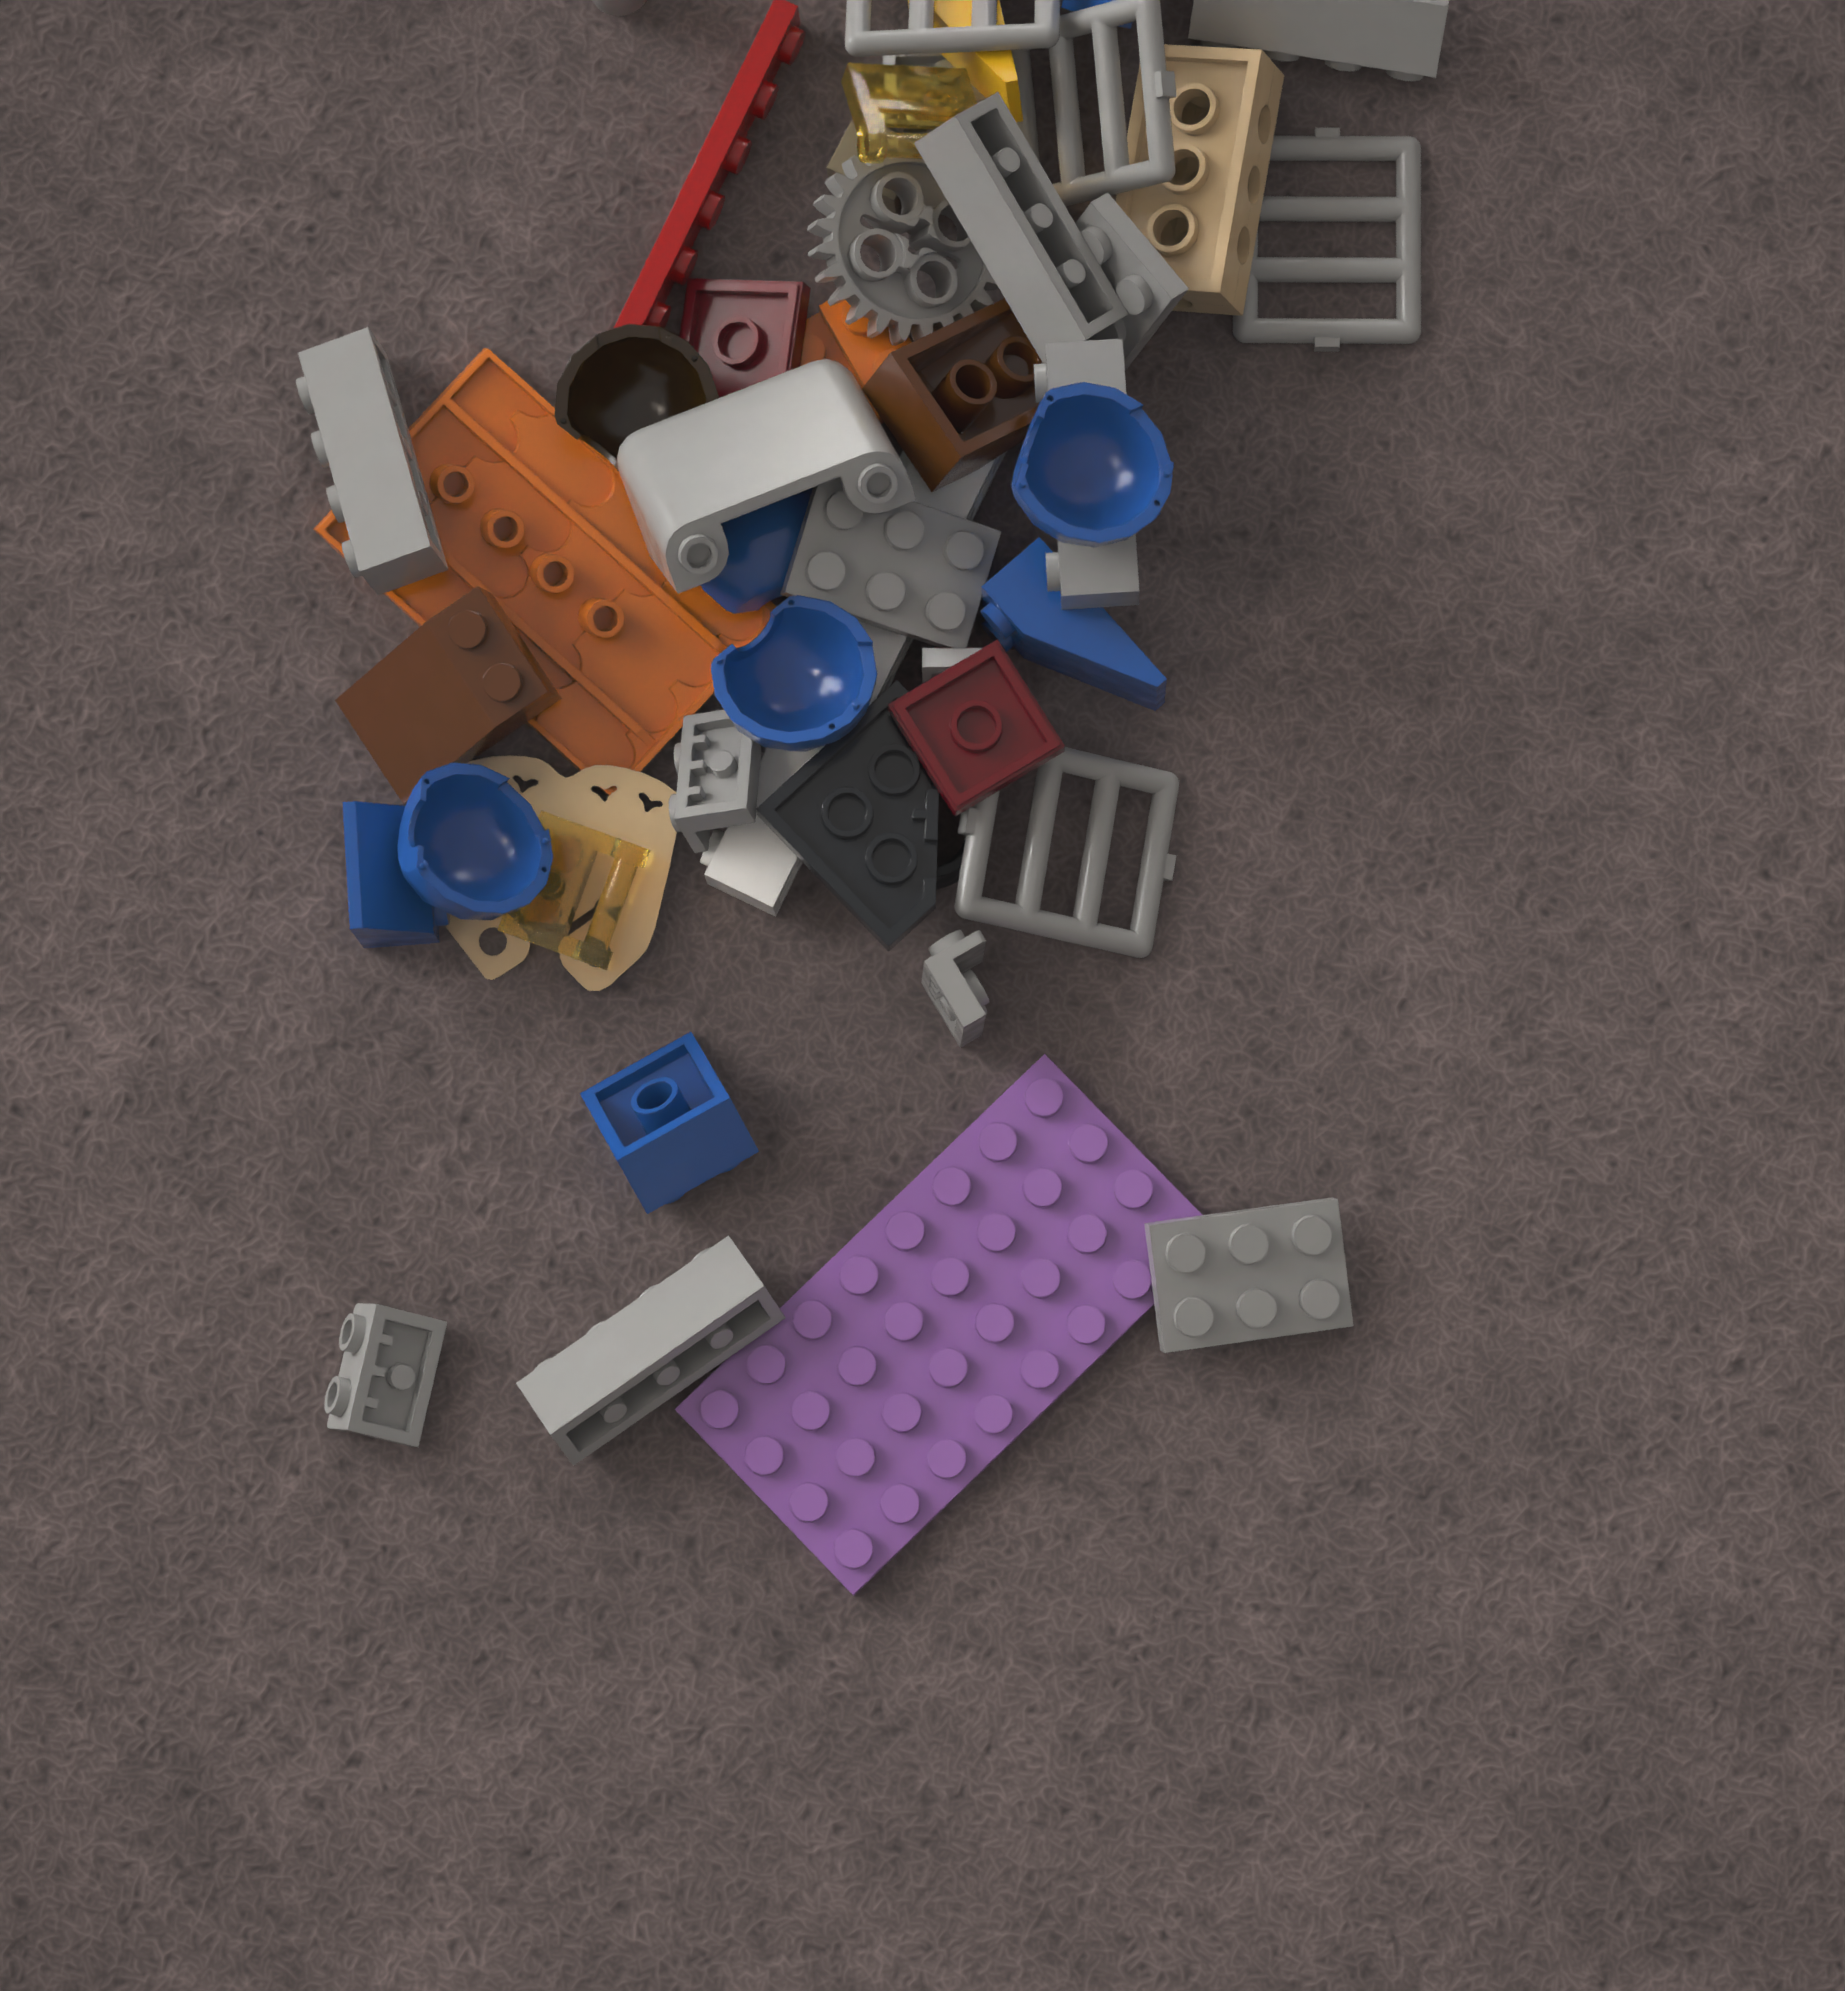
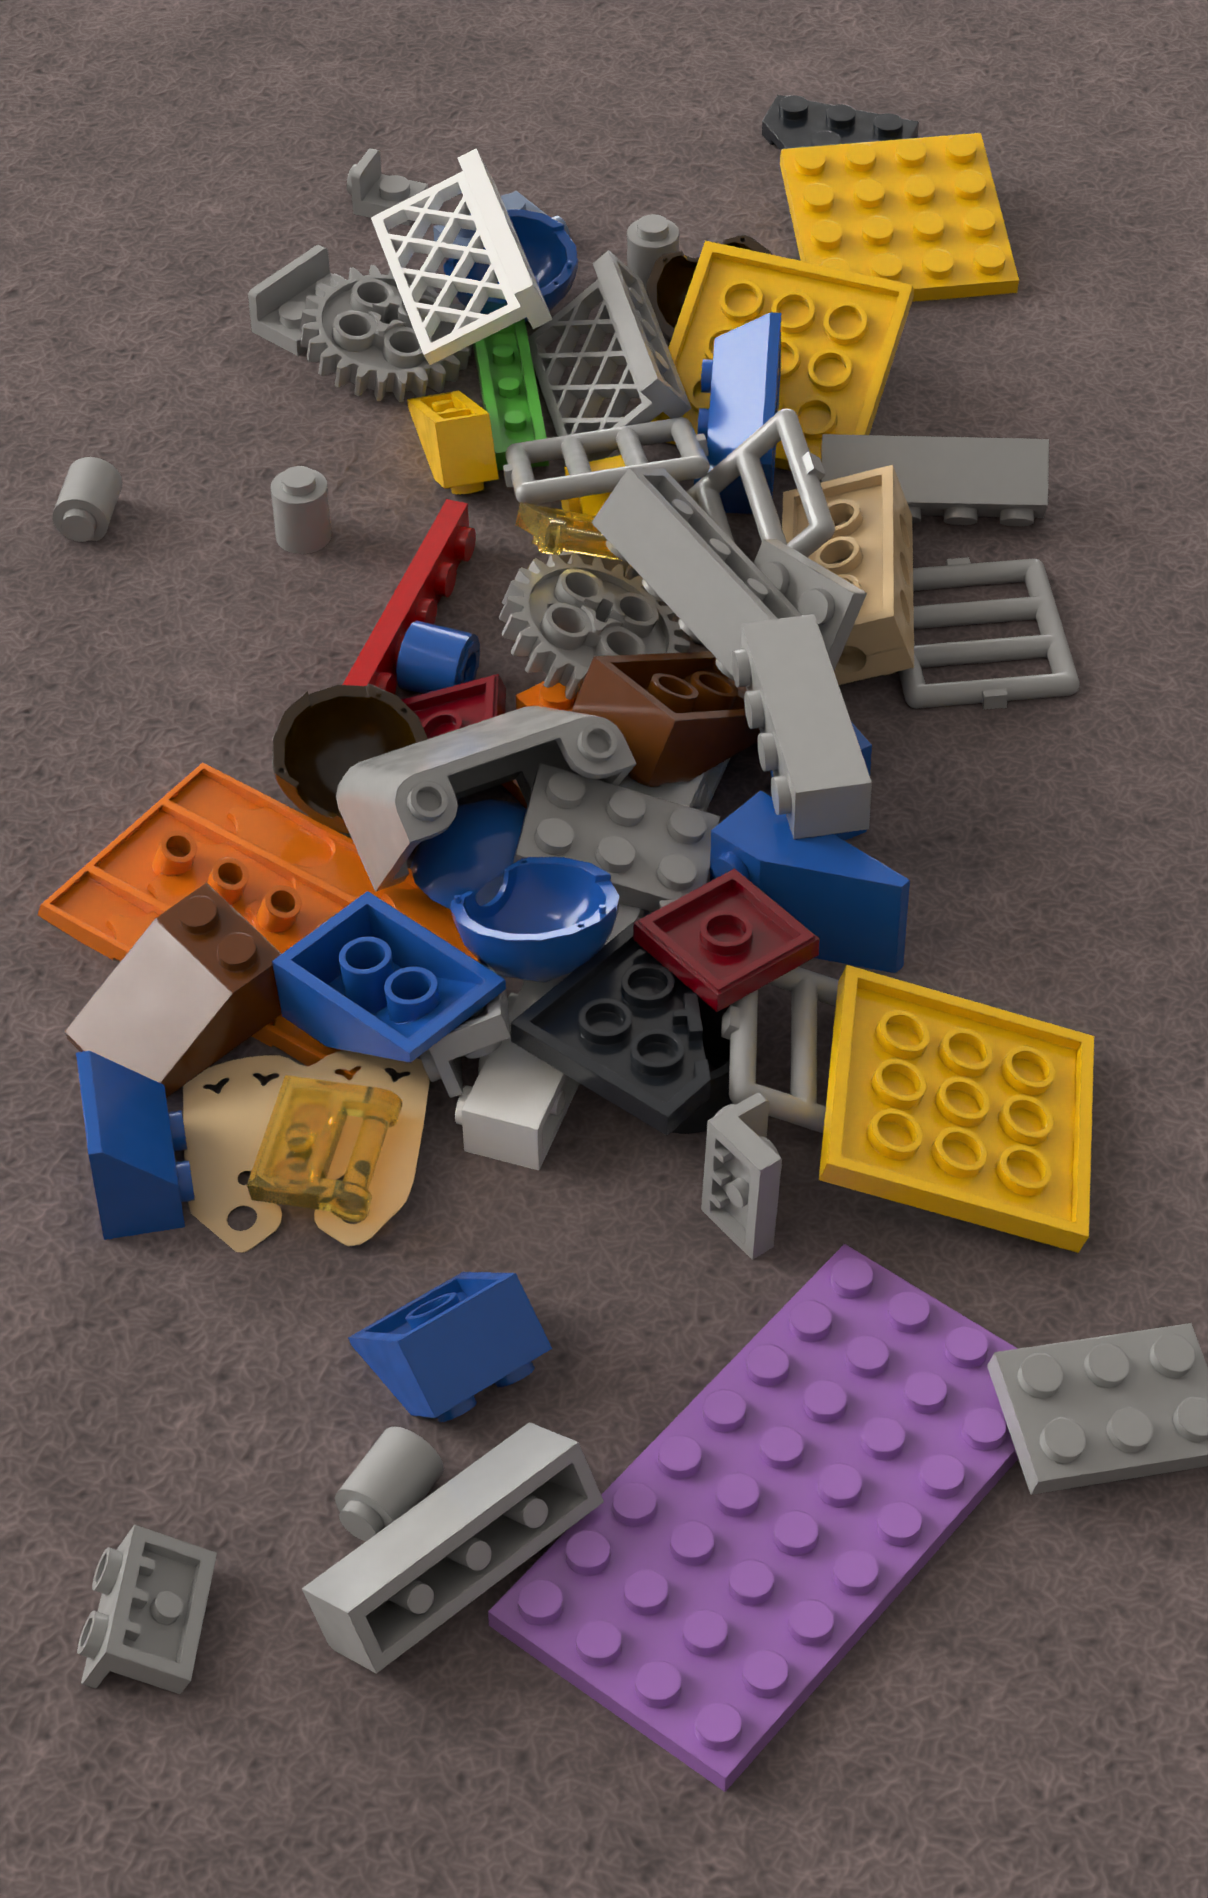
camera: 15 degrees left, 35 degrees down
(370, 461) = (93, 835): light grey brick -> none
(472, 843) = (212, 1090): blue cylinder -> none
(599, 1274) = (387, 1482): none -> light grey brick
(644, 733) = (379, 983): none -> blue slope
(744, 234) = (436, 658): none -> blue piece
(1091, 466) = (807, 669): blue cylinder -> none
(1175, 925) = (959, 1109): none -> yellow plate

